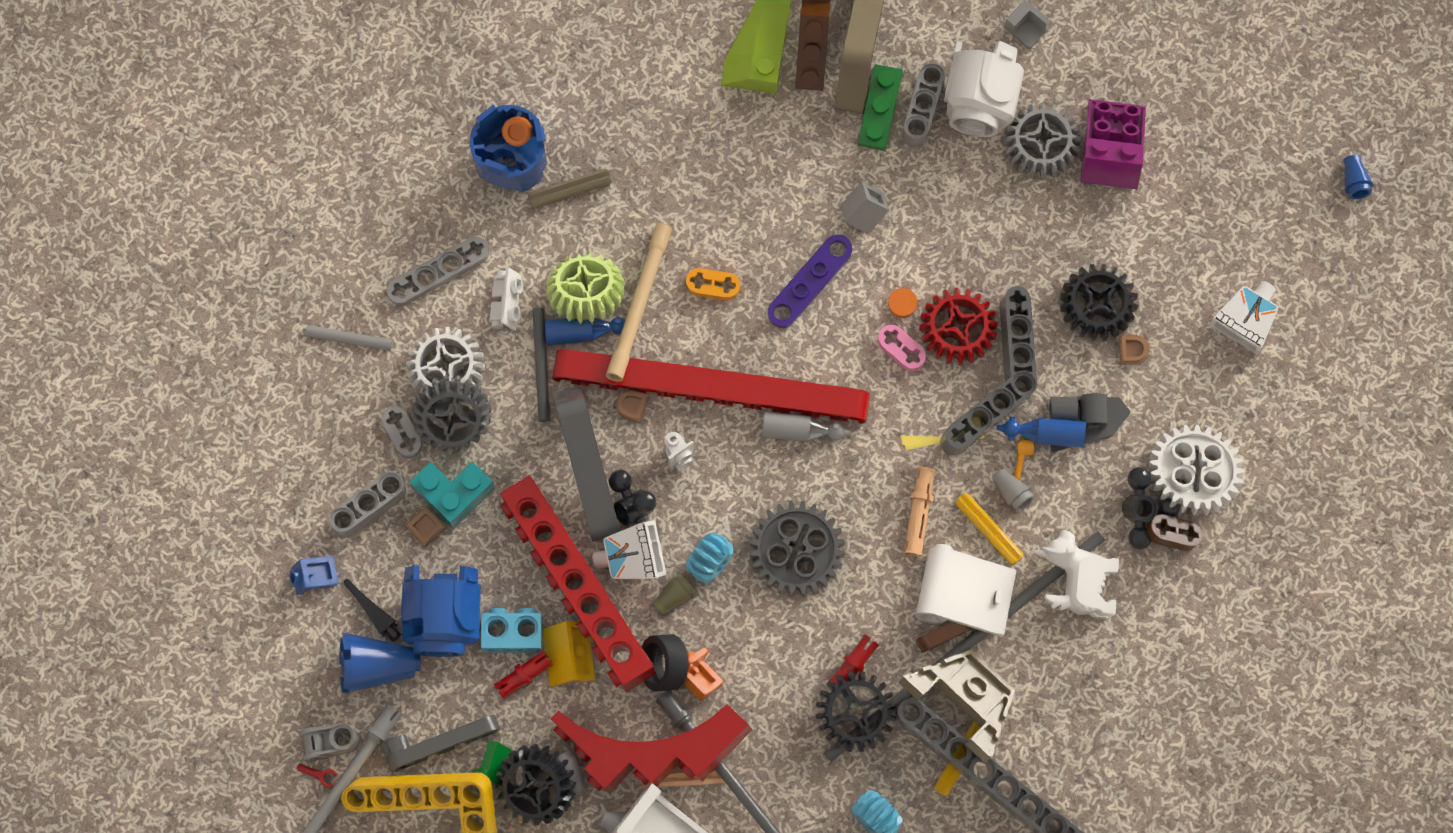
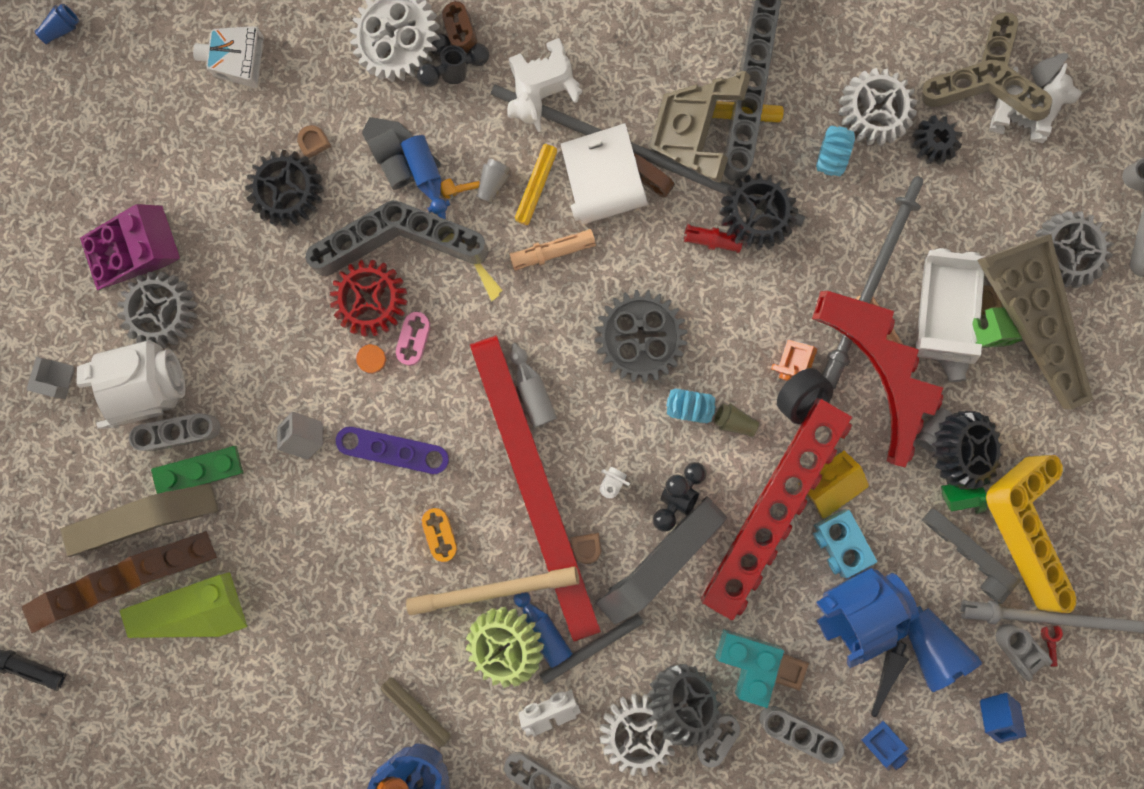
camera: 120 degrees left, 10 degrees up
(280, 691) = (1002, 718): none -> blue panel
(523, 674) = (874, 513): red pin -> none
(632, 553) = (723, 474): white torso -> none

